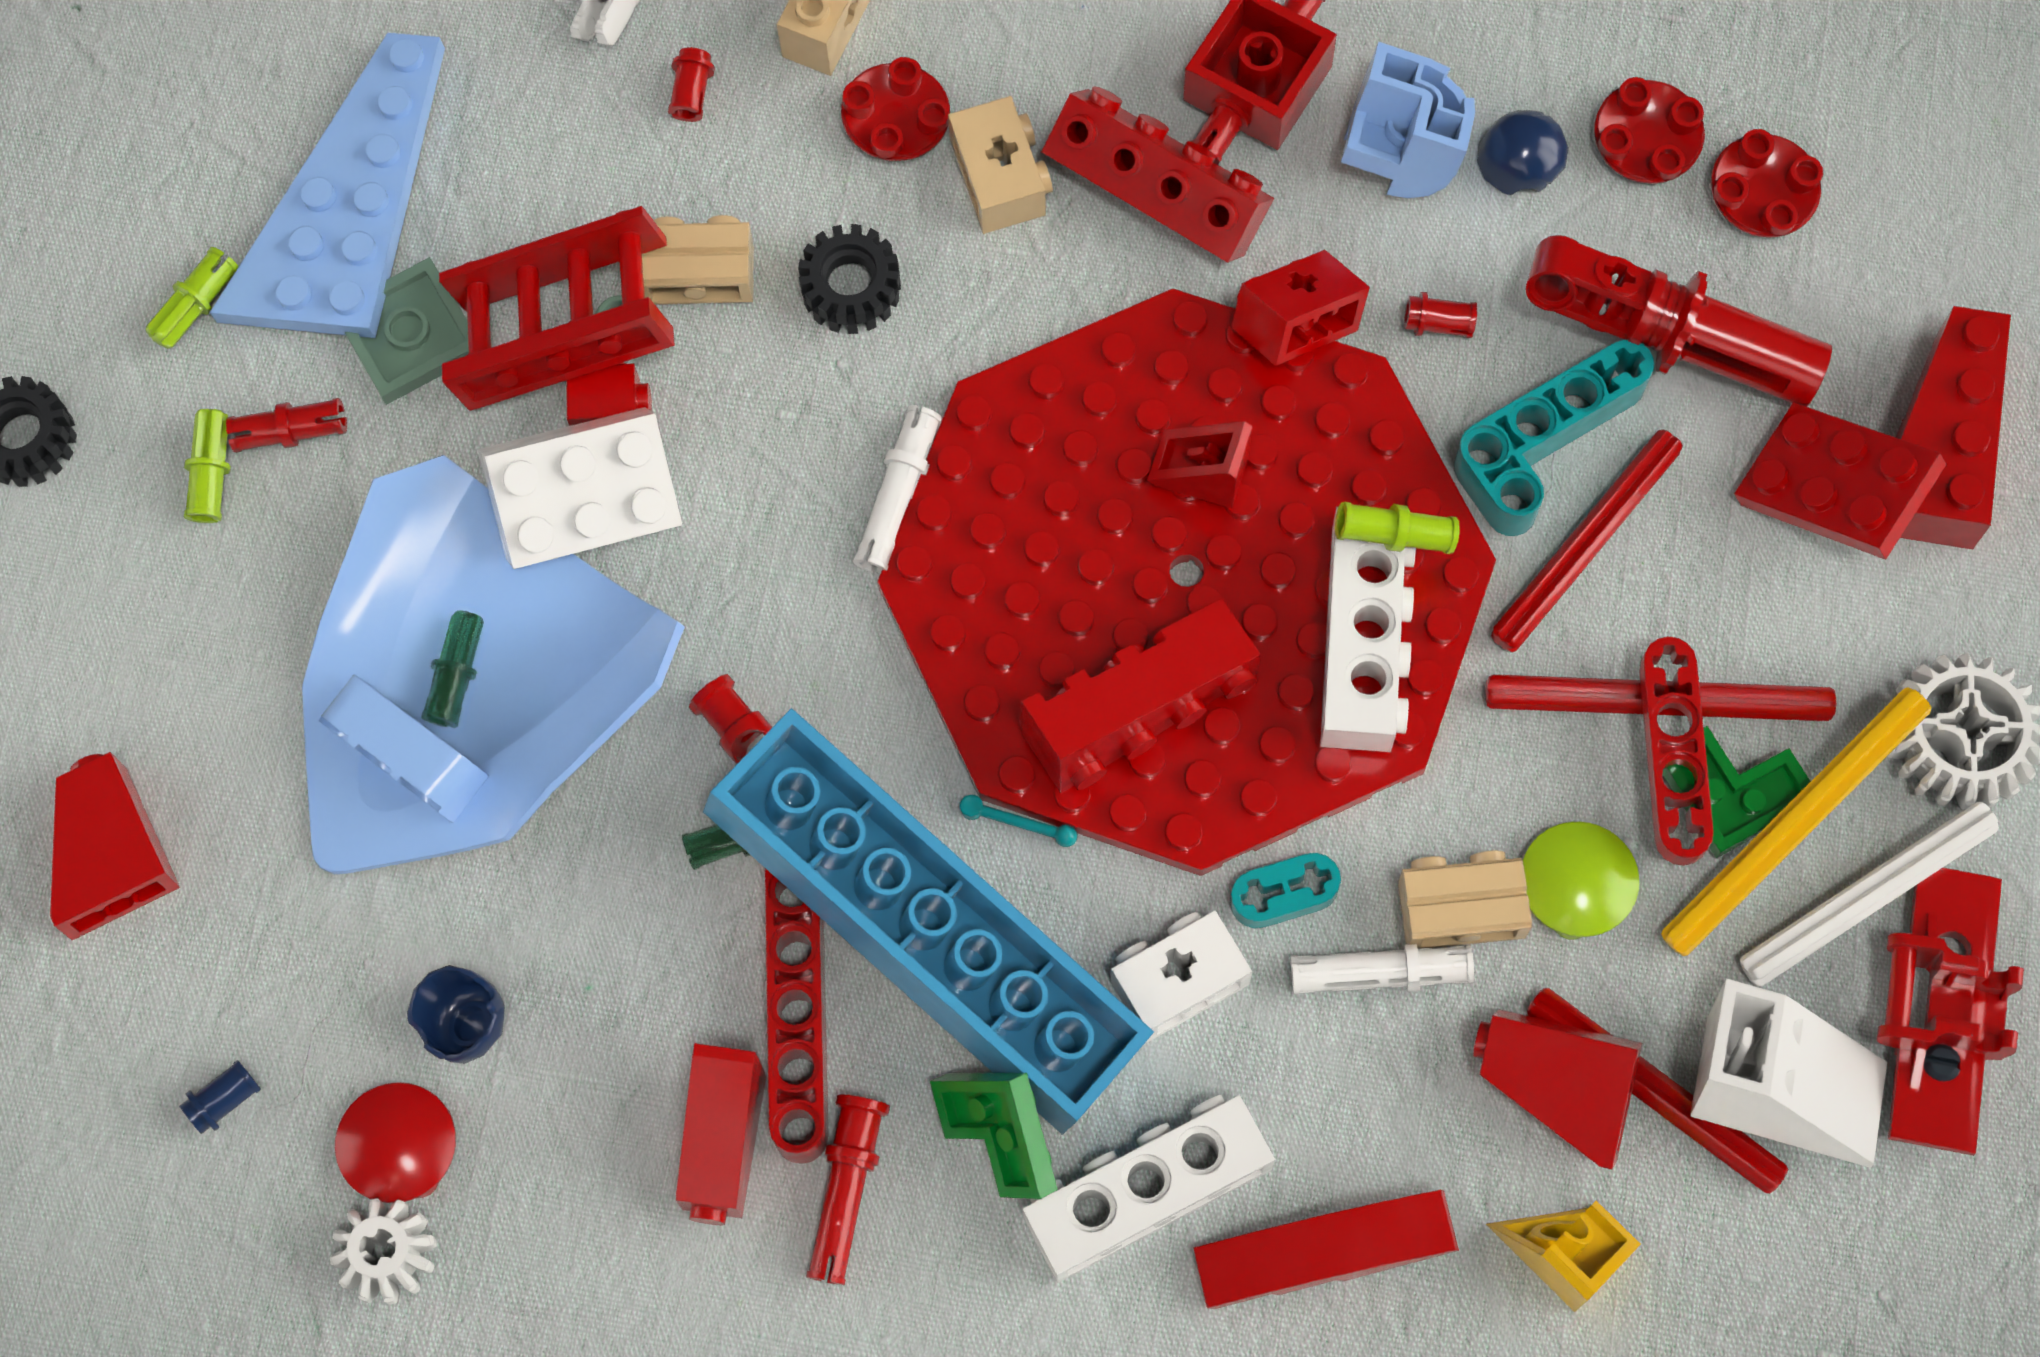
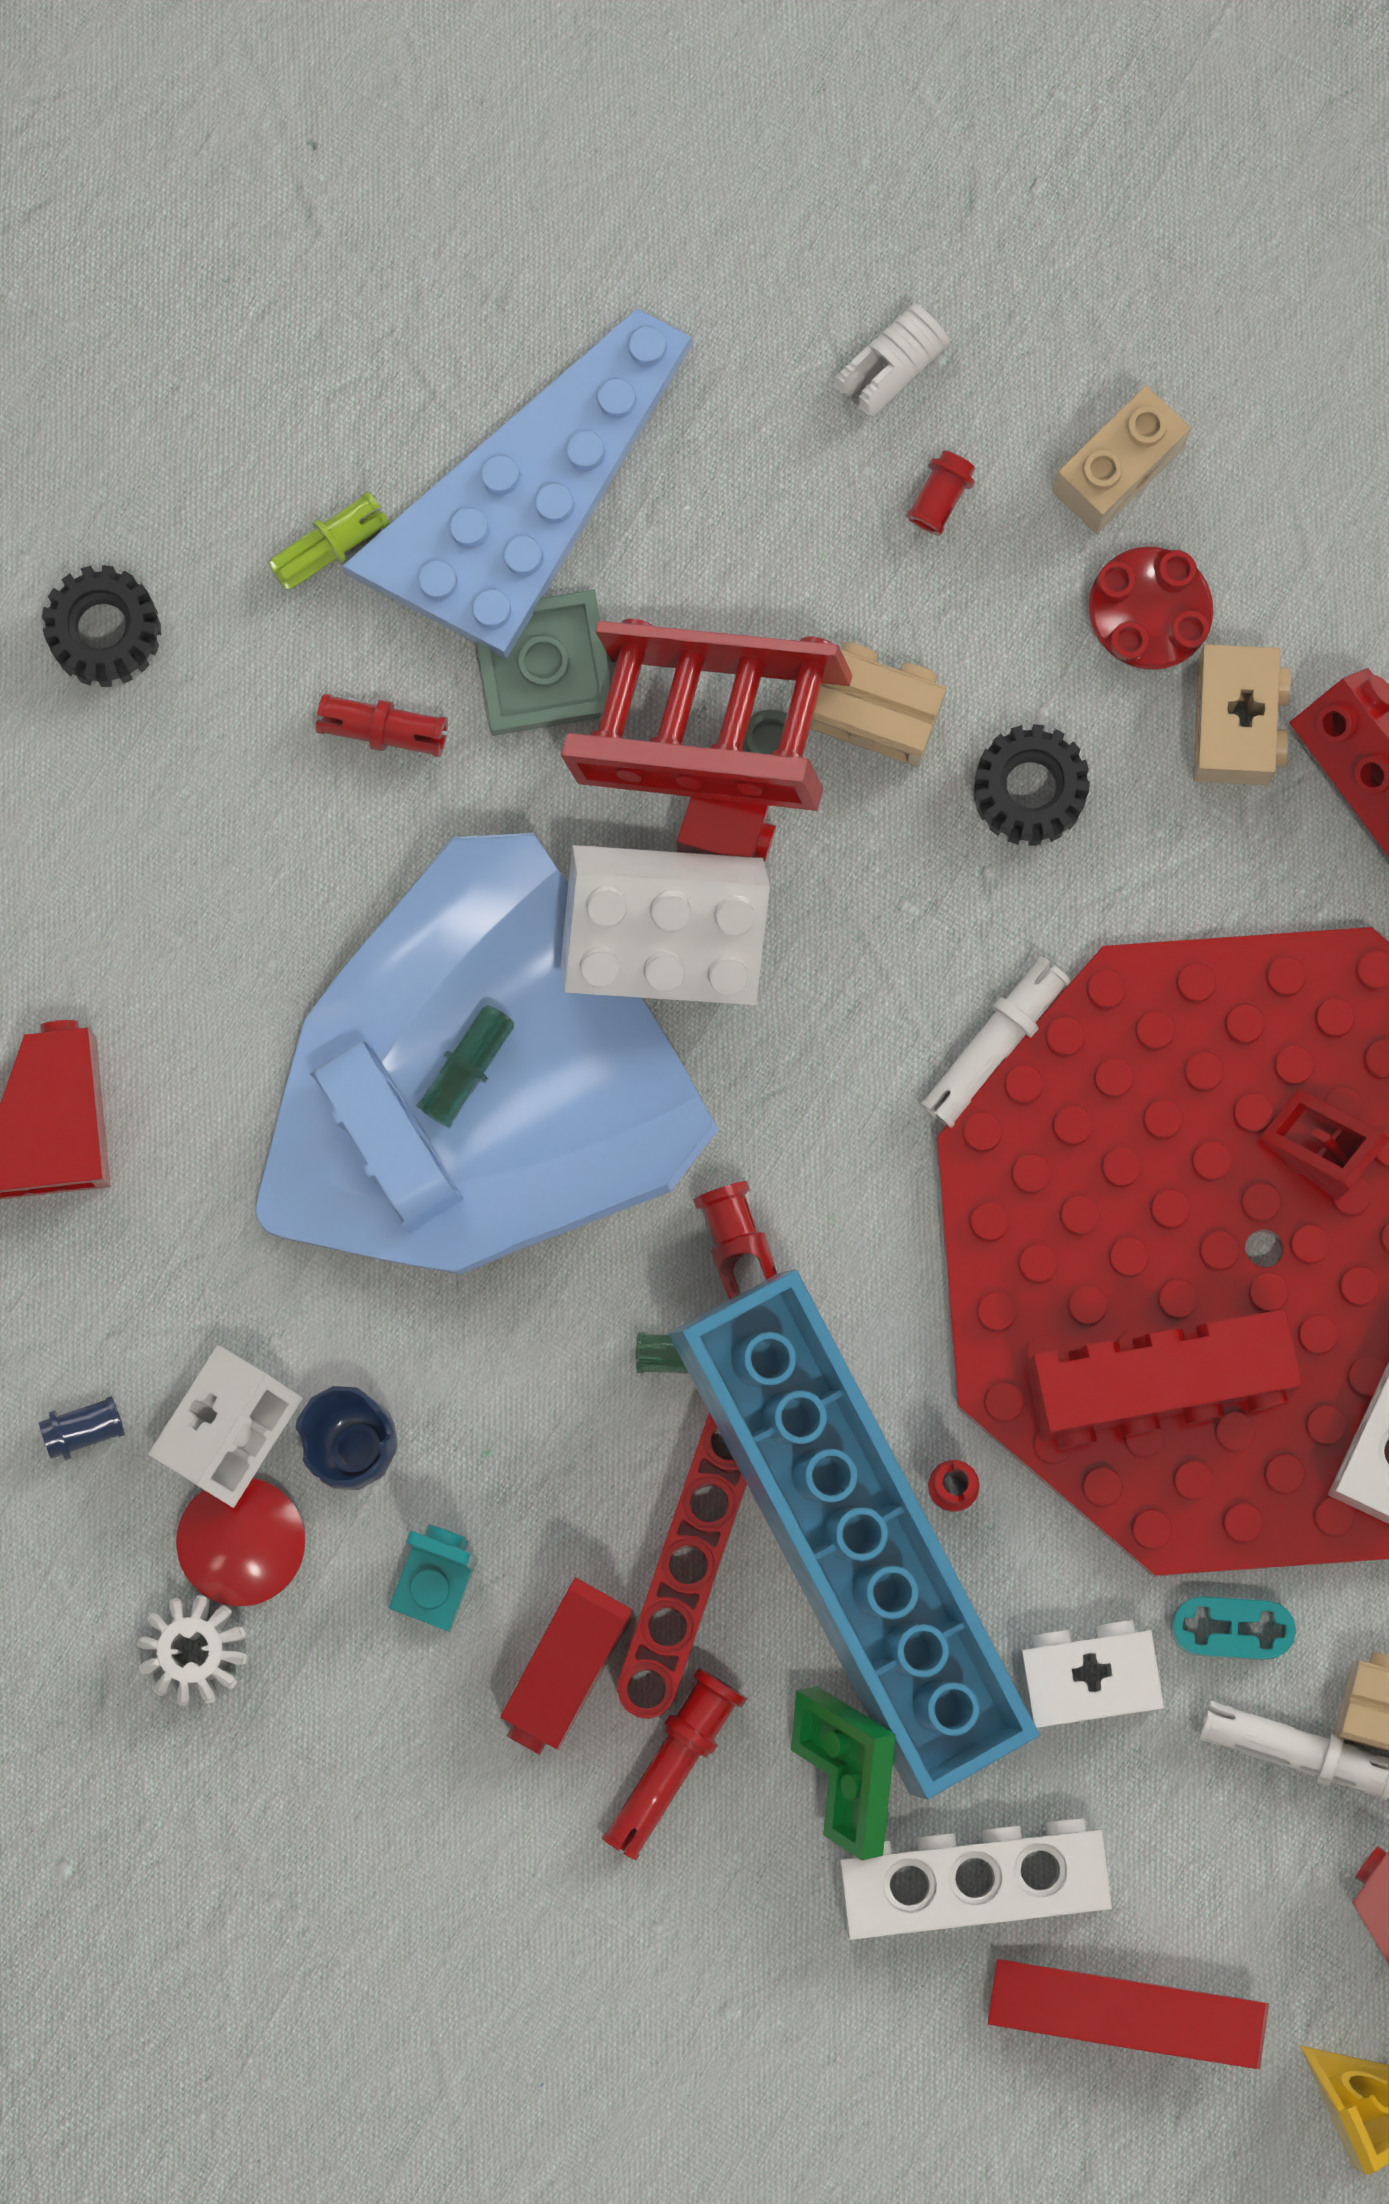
camera: 20 degrees right, 10 degrees up
(207, 467) = (284, 739): lime axle -> none
(345, 1043) = (225, 1426): none -> white brick
(576, 1102) = (434, 1577): none -> teal bracket
(973, 808) = (946, 1415): teal hinge -> none
(999, 853) = (960, 1471): none -> red pin

